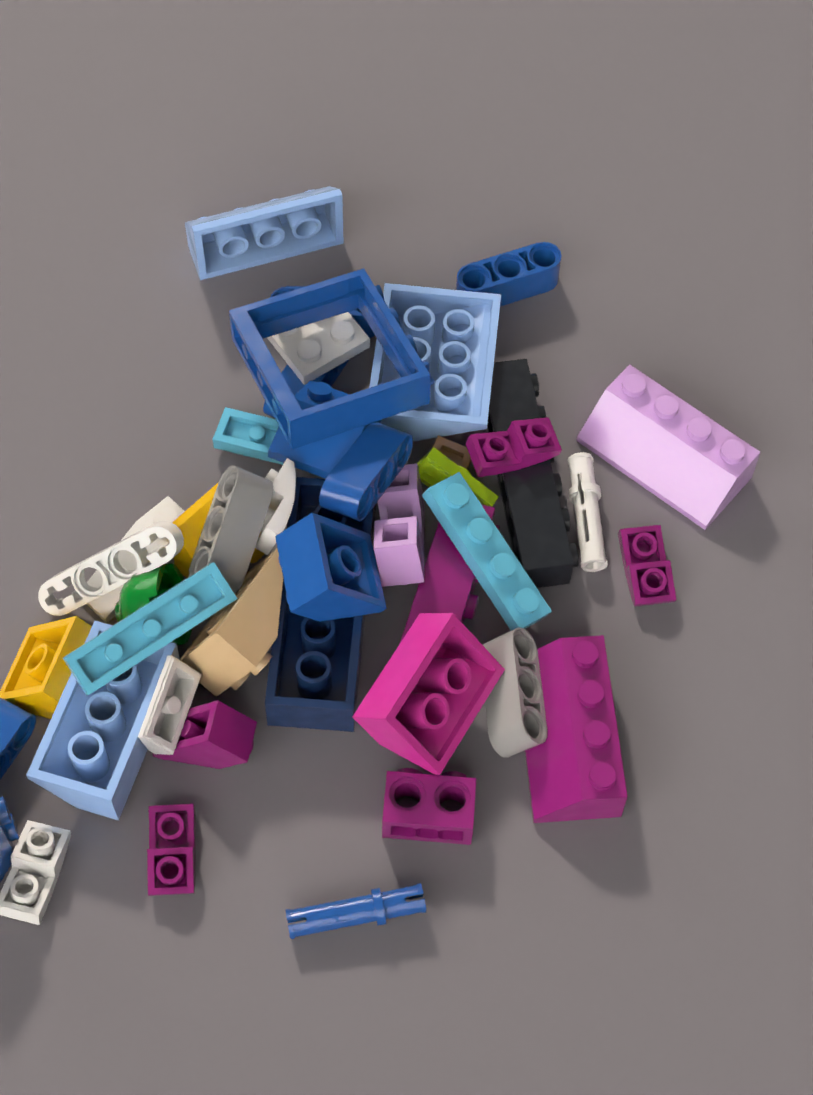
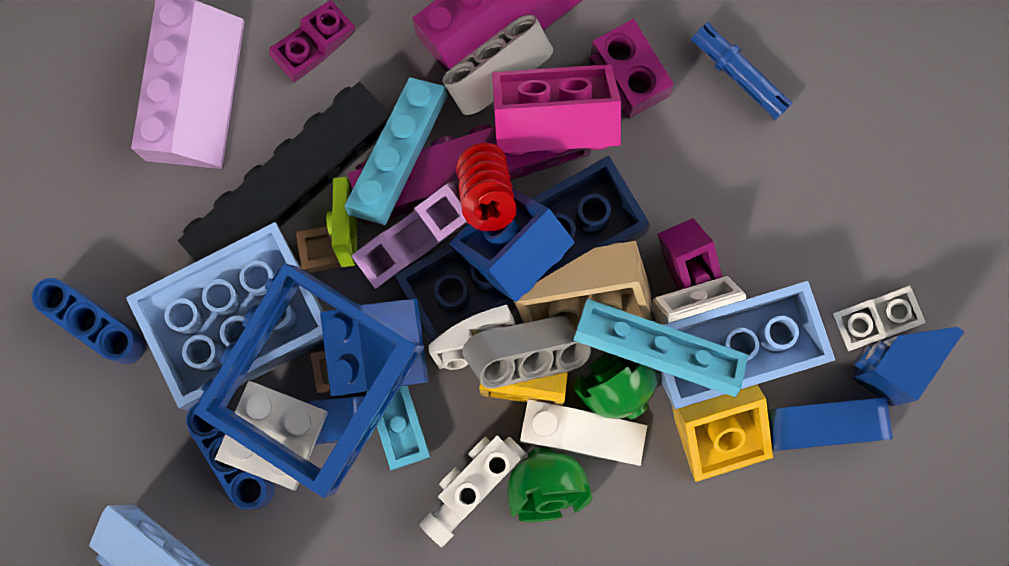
camera: 120 degrees left, 20 degrees up
(111, 570) = (587, 404): white beam -> none
(119, 503) = (547, 484): none -> green cylinder
(164, 449) = (474, 476): none -> white brick
(171, 850) = (790, 232): magenta slope -> none
(366, 471) = (398, 278): blue beam -> none
(393, 573) = (485, 187): none -> red piece
(519, 447) = (281, 189): magenta slope -> none
(585, 497) = (253, 140): white pin -> none

